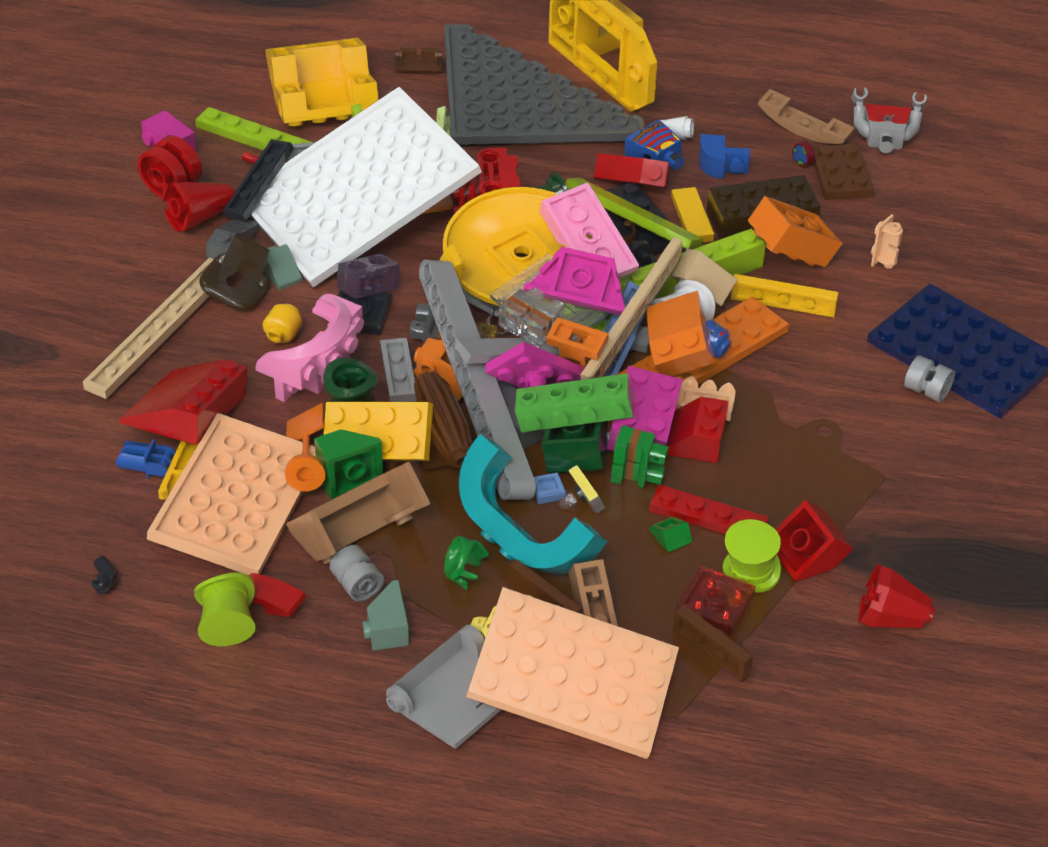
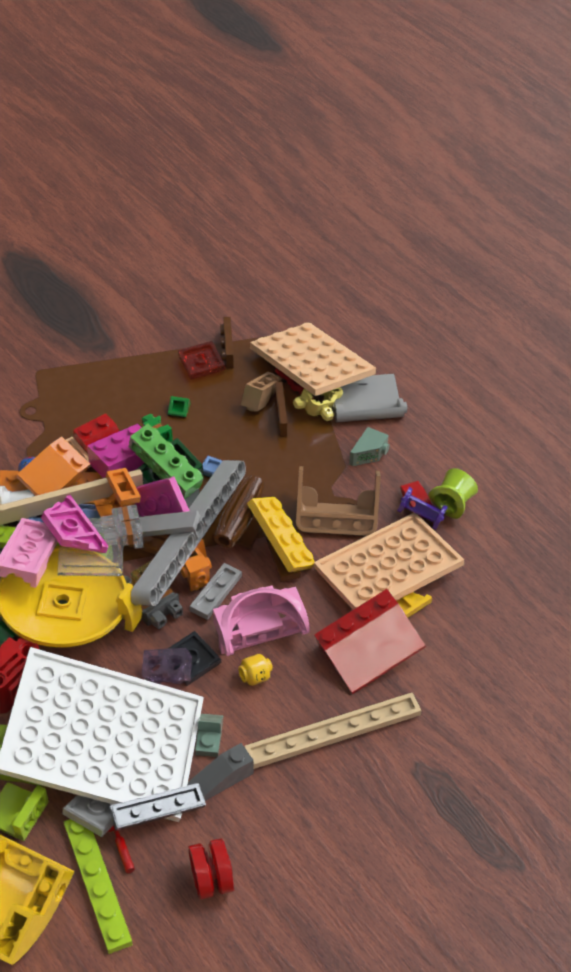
camera: 140 degrees left, 5 degrees up
(107, 575) = (498, 568): black arm -> none
(146, 458) = (424, 626): blue arm -> none
(165, 124) = (172, 930): dark pink brick -> none
(194, 202) = (215, 822): red cone -> none
(242, 257) = (258, 740): dark brown piece -> none
(257, 566) = (422, 508): none -> dark purple hose
(305, 470) = (310, 582): orange piece -> none
(348, 460) = (315, 531): green slope -> none
(349, 381) = (265, 571): dark green hat -> none
(356, 573) = (363, 475): light grey wheel -> none
(458, 554) = (295, 447): green piece -> none
(477, 492) = (266, 436): teal arch -> none
(583, 490) = (198, 448): piece -> none
(699, 510) = (148, 399): red plate -> none
(753, 554) = (164, 359): lime hat -> none
(810, 542) = (124, 354): red slope -> none
(893, 602) = (129, 307): red cone -> none

